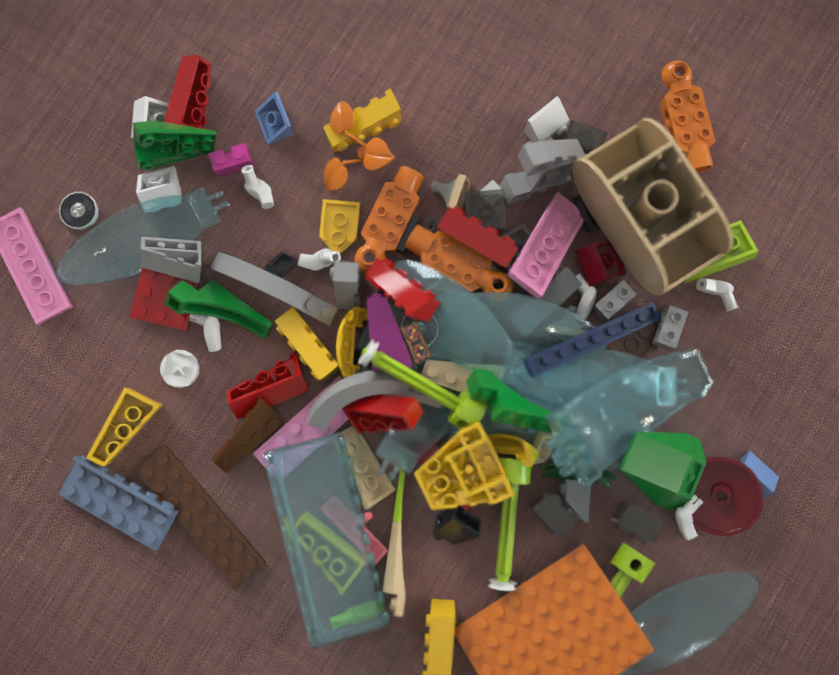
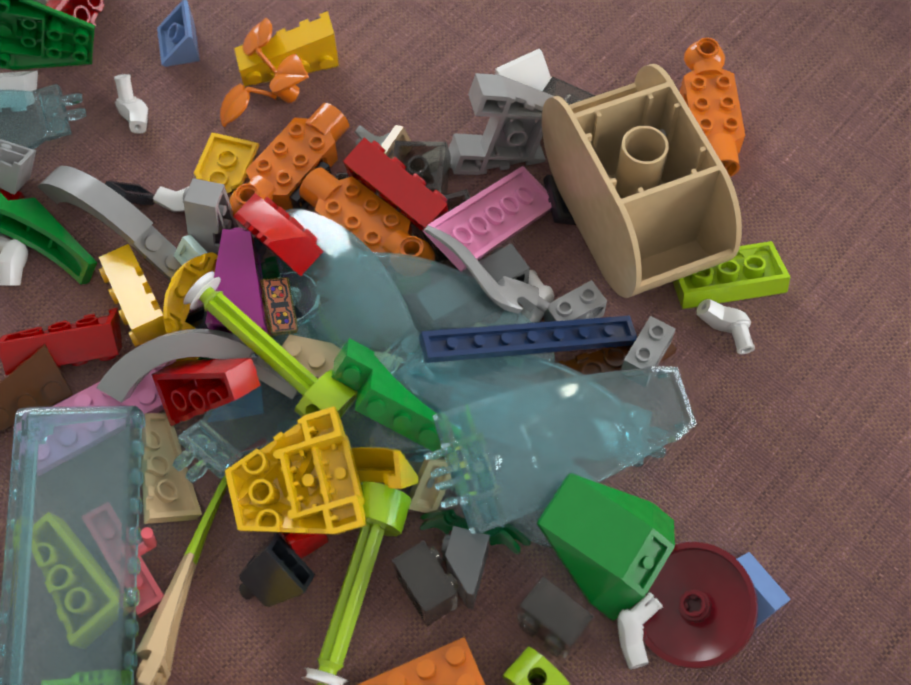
camera: 10 degrees right, 20 degrees down
(231, 162) = (100, 71): dark pink brick -> none
(339, 308) = (188, 249): none -> light aqua plate
(573, 306) = (506, 293): none -> light grey piece
(600, 262) = (565, 260): dark red slope -> none

